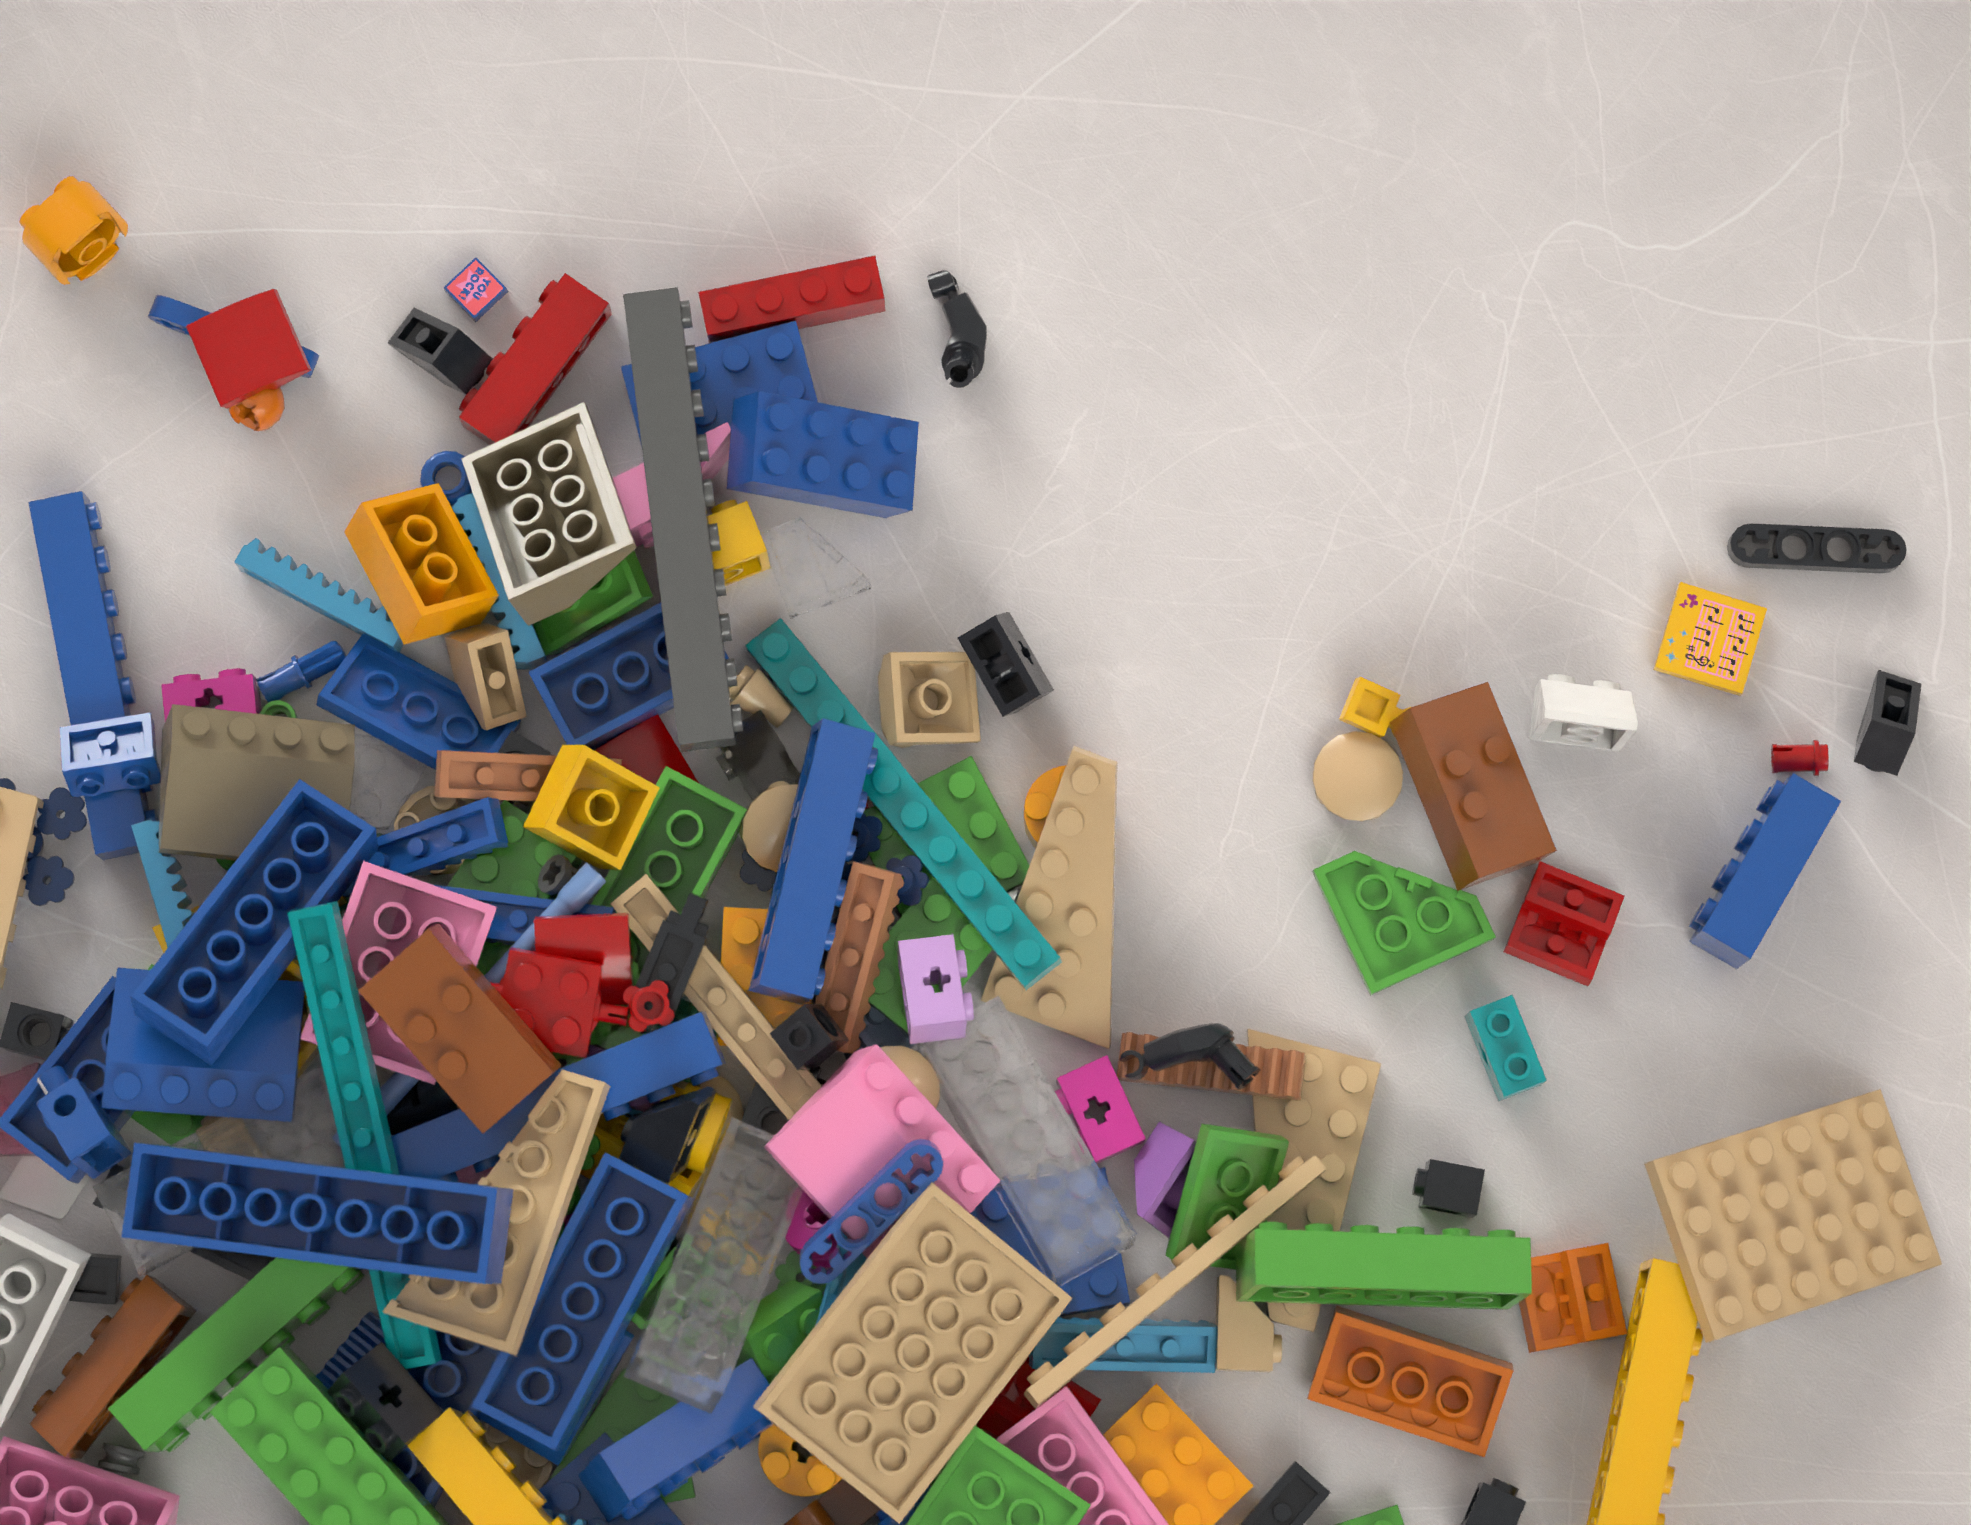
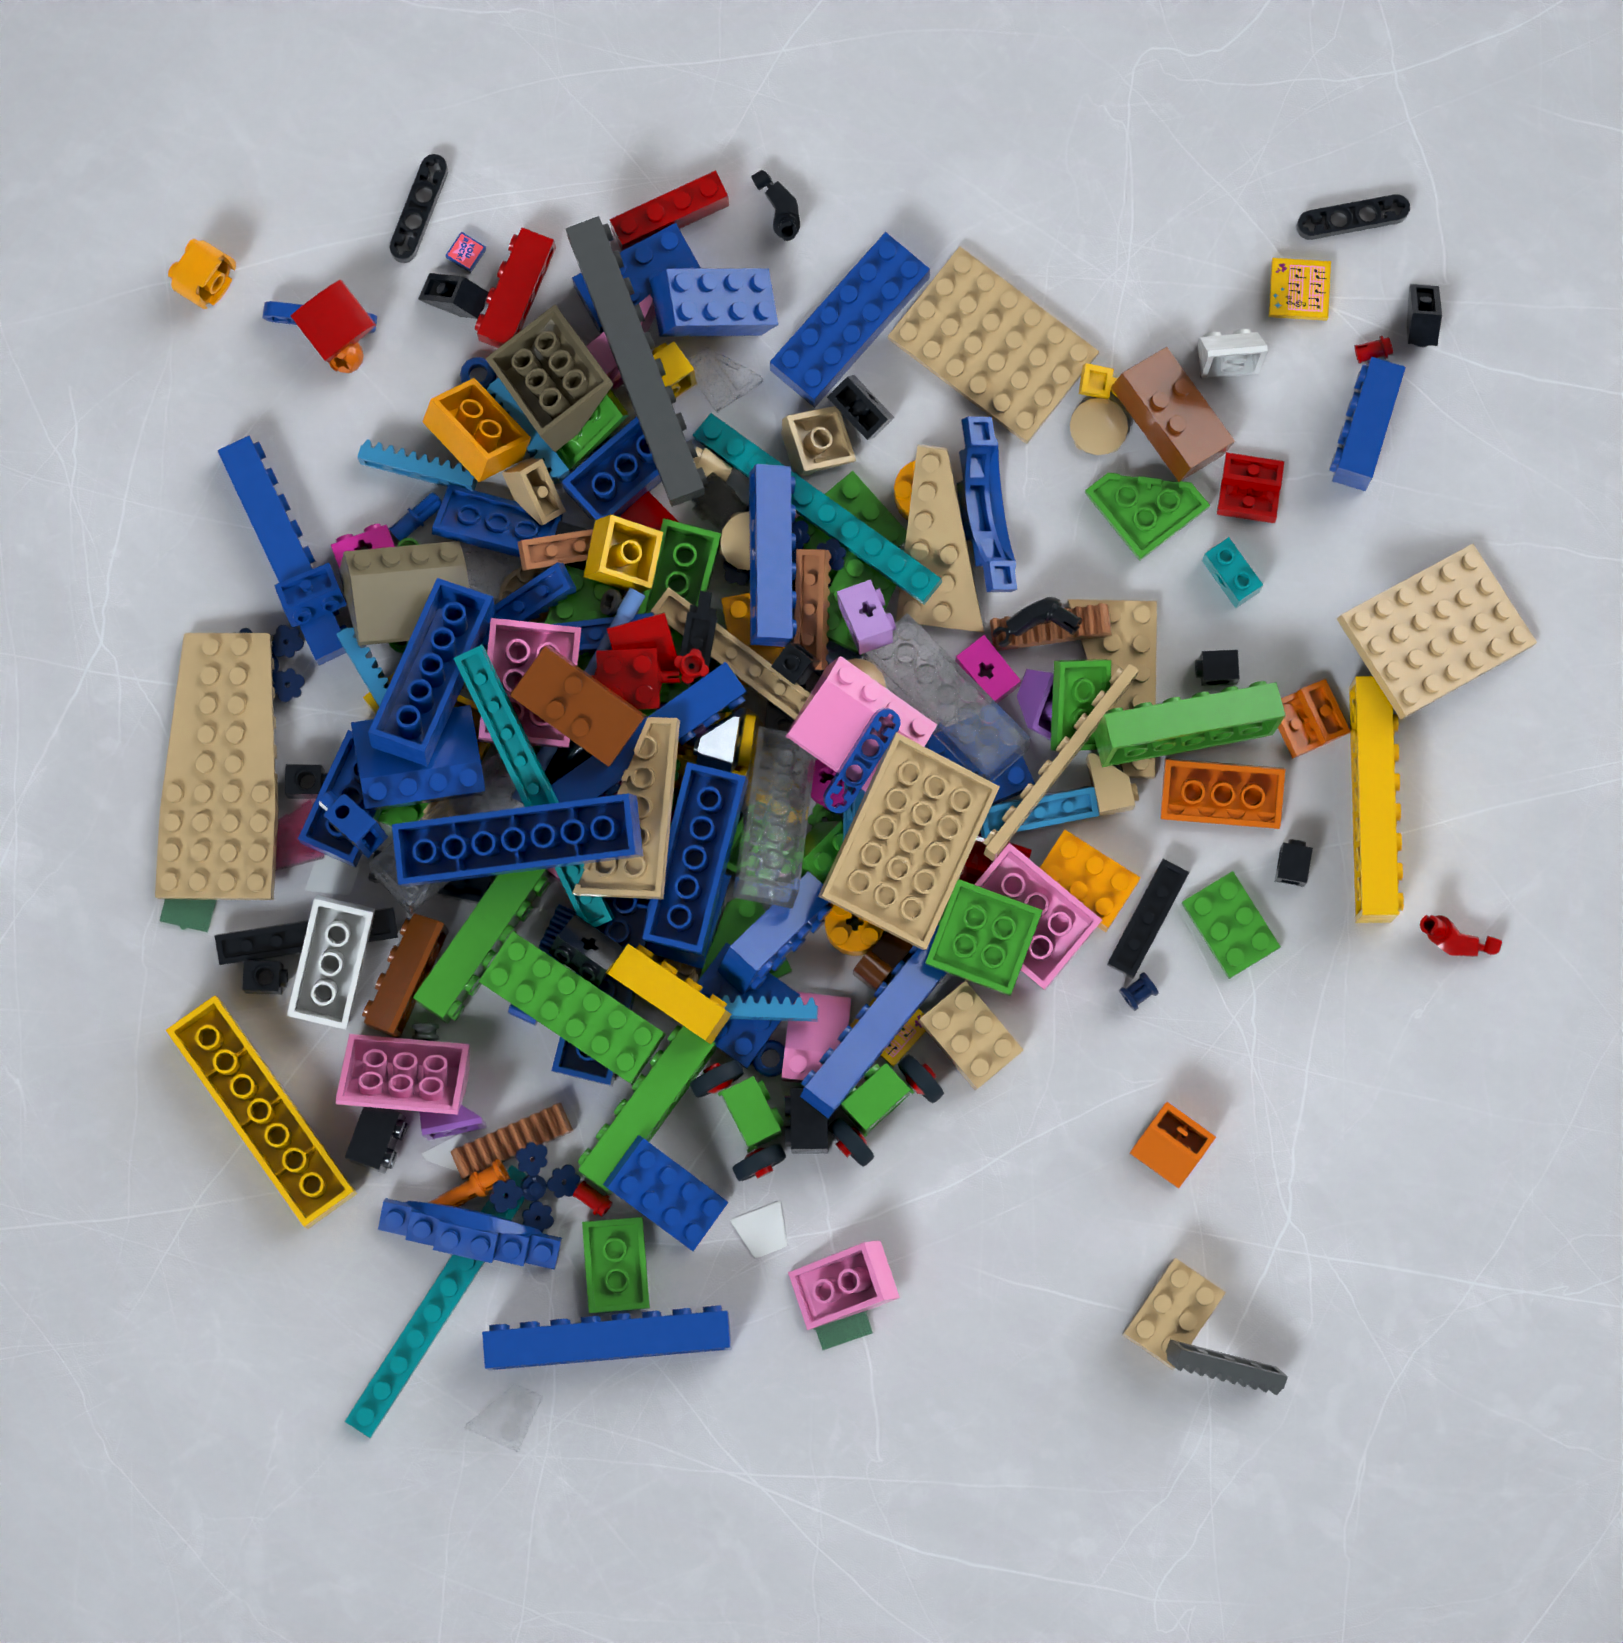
camera: 10 degrees left, 0 degrees up
(417, 204) = (415, 207): none -> black beam
(1022, 526) = (849, 319): none -> blue brick
(1155, 857) = (983, 505): none -> blue piece
(1228, 615) = (993, 345): none -> tan plate

